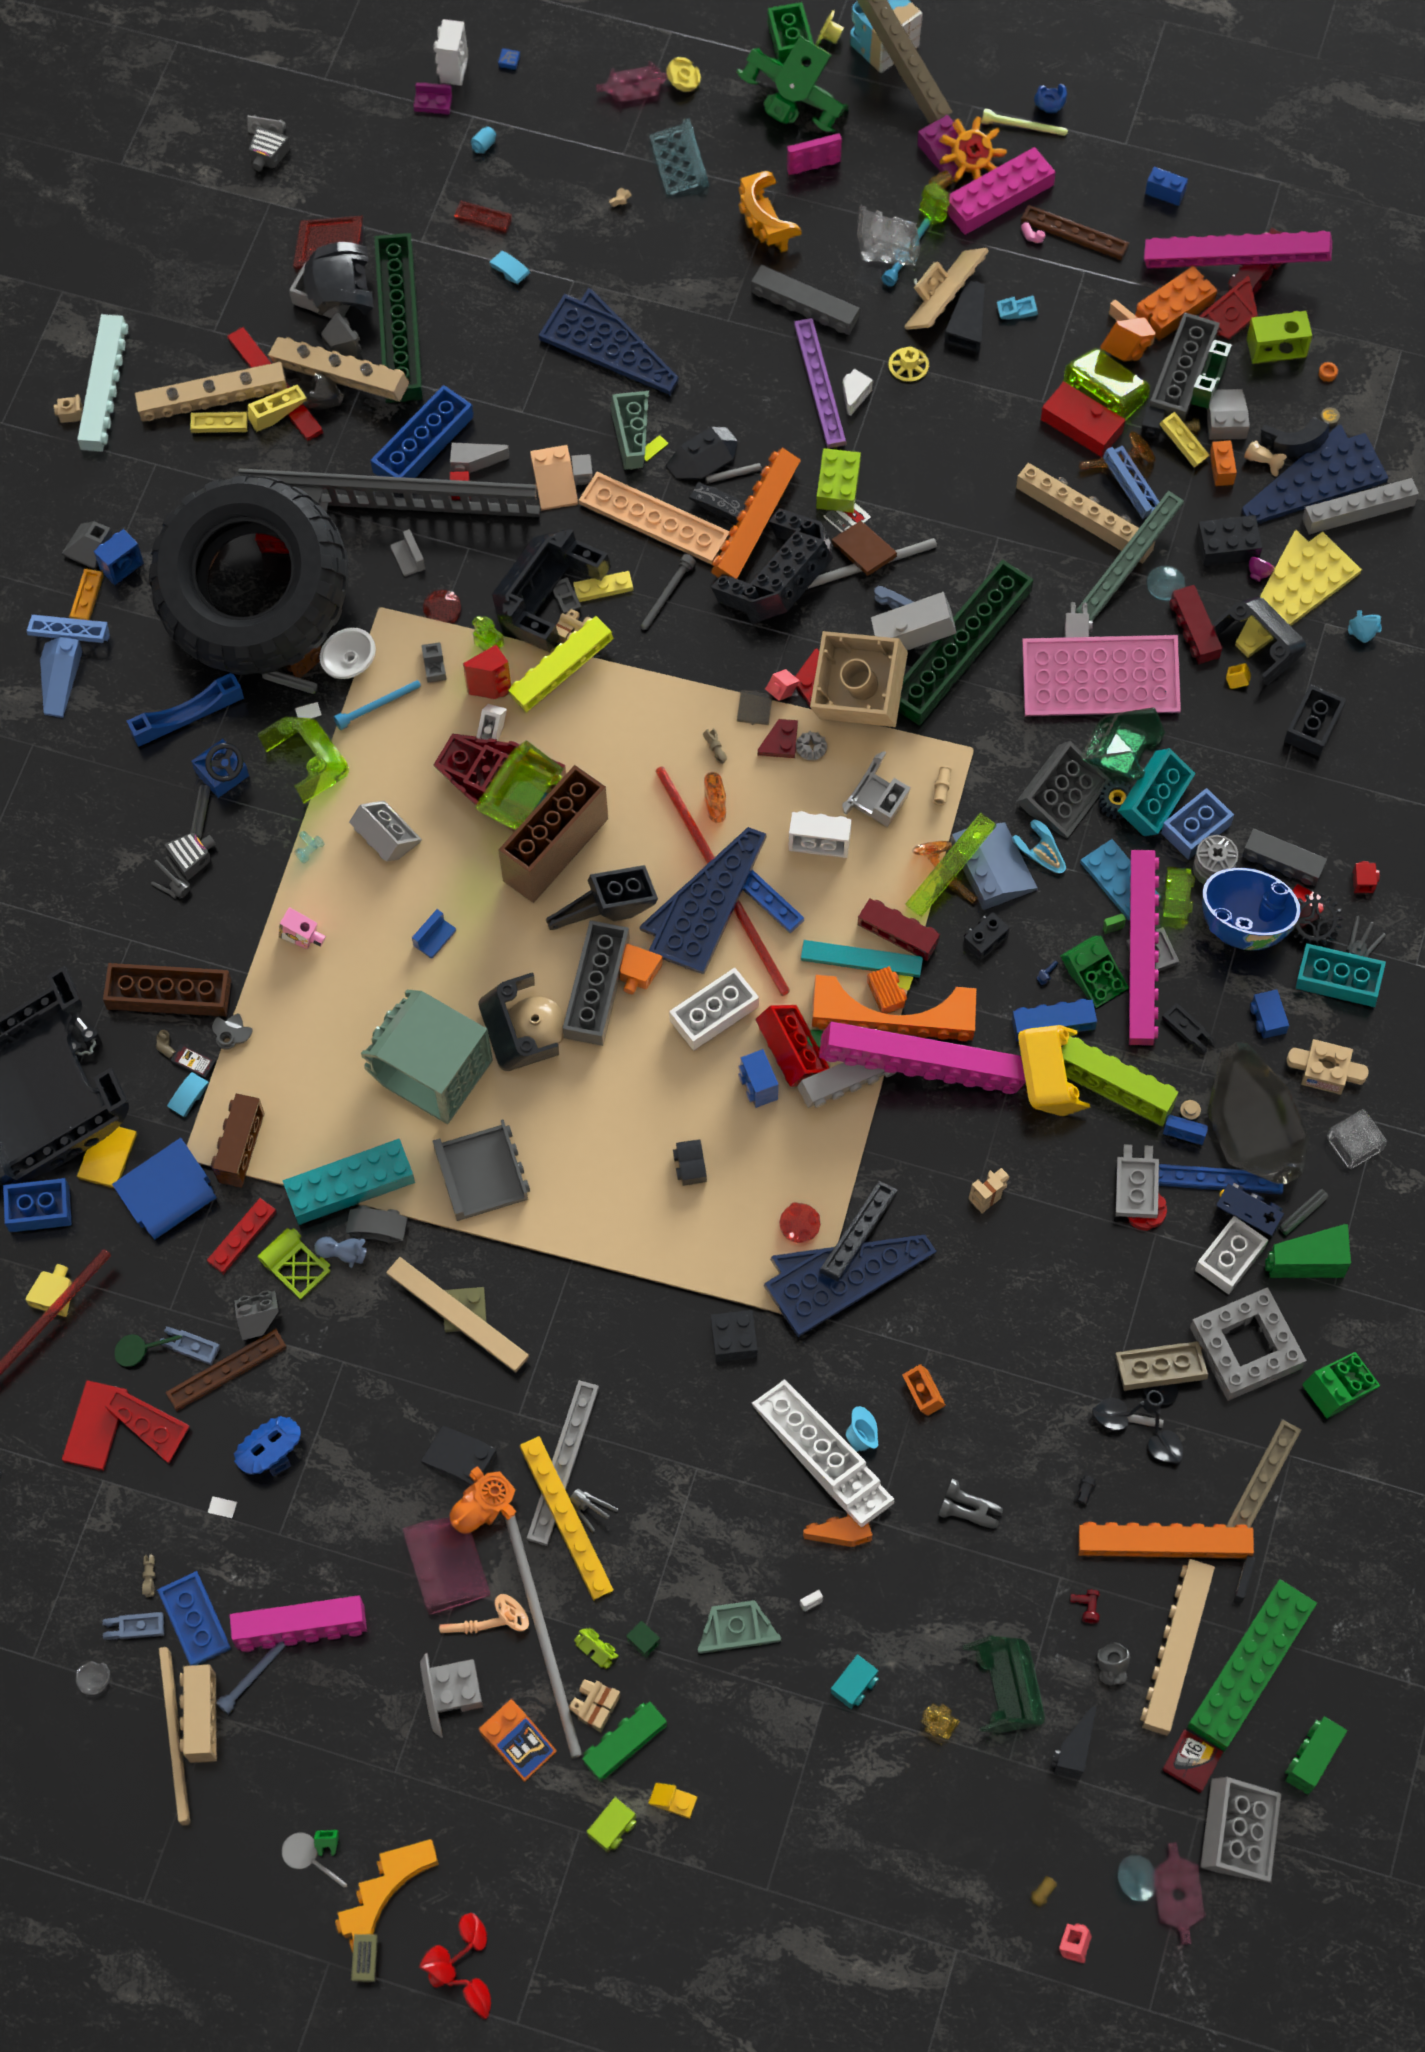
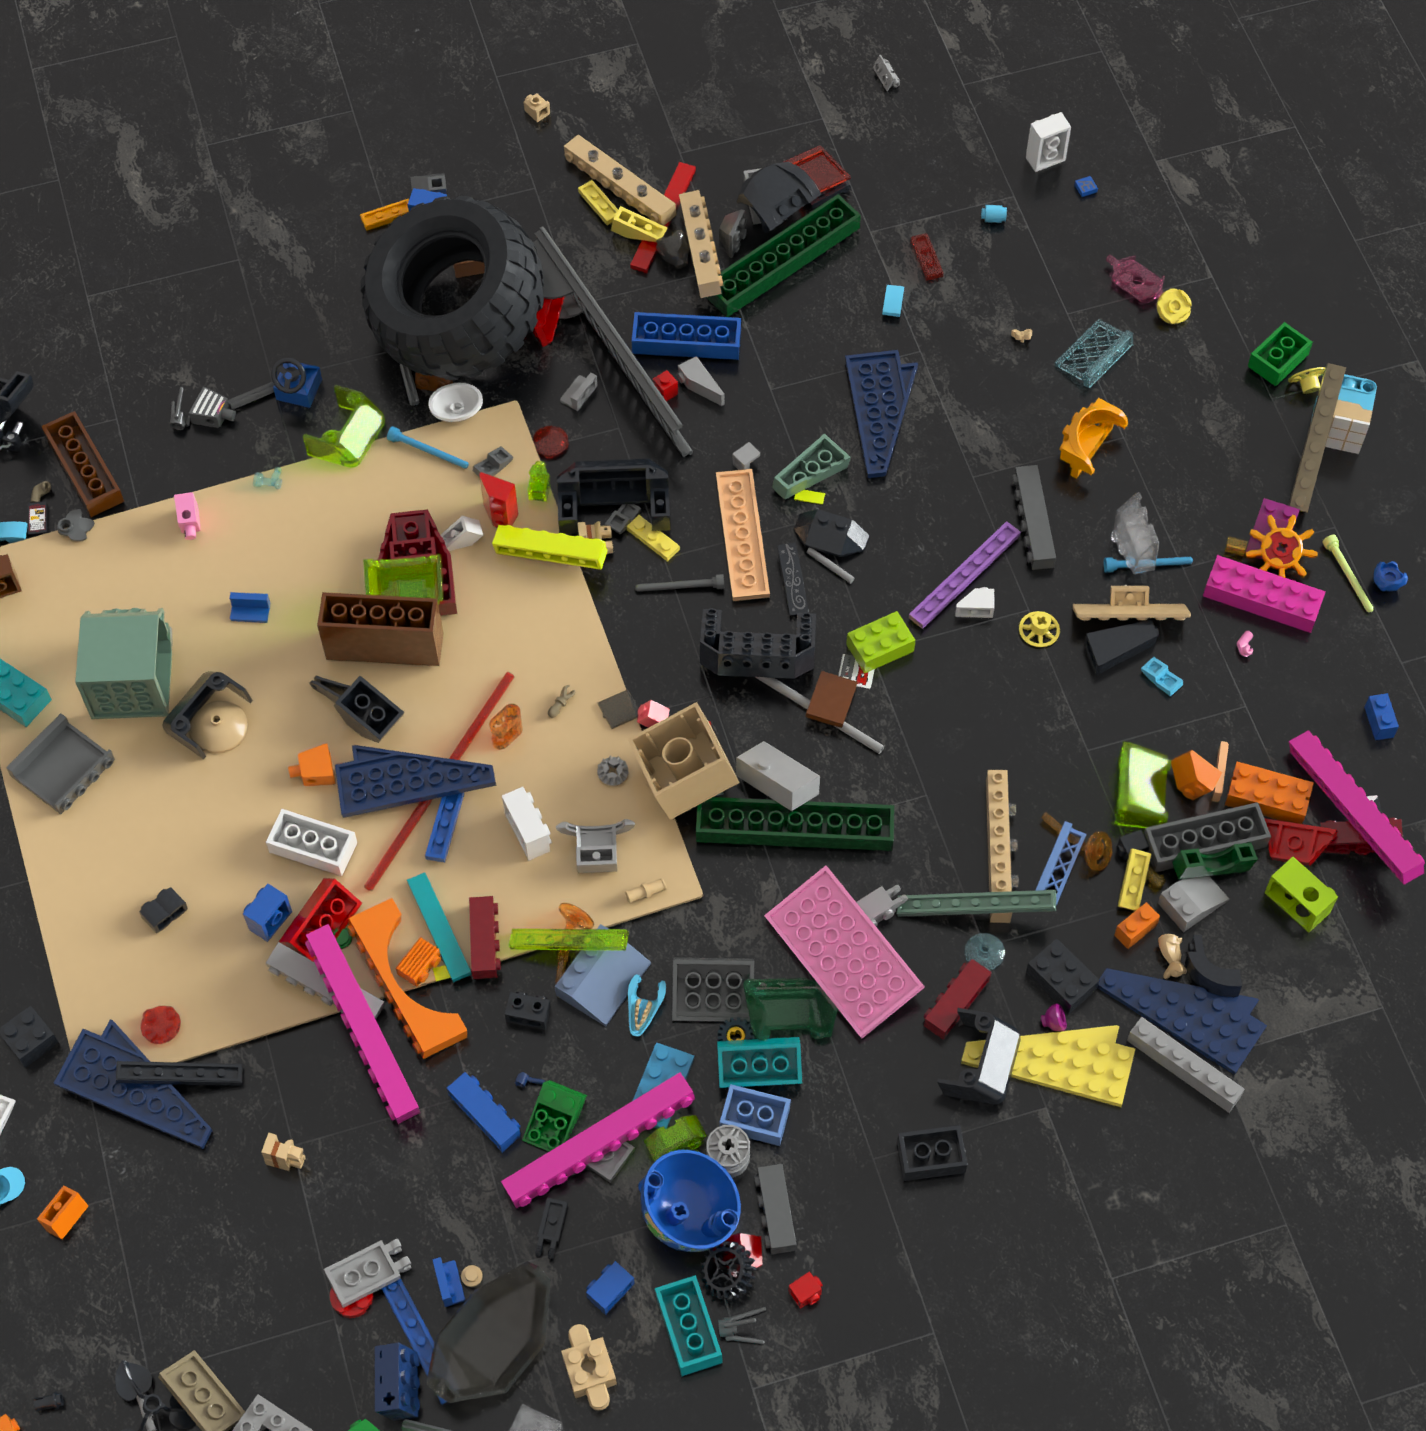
camera: 55 degrees right, 5 degrees down
(58, 671) = (310, 237): medium blue wedge -> none
(69, 628) = (346, 215): medium blue fence -> none
(102, 383) = (574, 111): light aqua brick -> none
(215, 697) = (302, 319): blue arch -> none
(267, 148) = (864, 86): dark grey torso -> none
(308, 711) = (393, 411): white sticker -> none
(384, 830) = (317, 519): light grey slope -> none
(433, 98) = (1004, 160): magenta bracket -> none
(554, 477) = (721, 442): light nougat slope -> none
(596, 983) = (277, 743): dark grey brick -> none
(756, 514) = (796, 601): orange brick -> none
(780, 740) = (602, 745): dark red wing -> none
(795, 84) = (1224, 382): green piece -> none
(814, 154) = (1176, 438): dark pink plate -> none
(887, 596) = (798, 743): sand blue hinge -> none
(934, 202) = (1205, 551): clear neon green brick -> none
(1046, 1070) = (412, 1123): yellow windscreen -> none
(1075, 232) = (1276, 676): reddish brown tile -> none
(1082, 419) = (1090, 789): red brick -> none
(1114, 923) = (609, 1103): bright green tile -> none
(1118, 1081) = (452, 1195): lime brick -> none
(1231, 1255) = (343, 1392): white brick -> none
(1238, 676) = (933, 1064): yellow slope -> none
(1328, 372) = (1306, 958): orange tile -> none
(1330, 416) = (1260, 987): dark tan tile -> none
(1364, 626) = (1063, 1140): medium azure helmet -> none

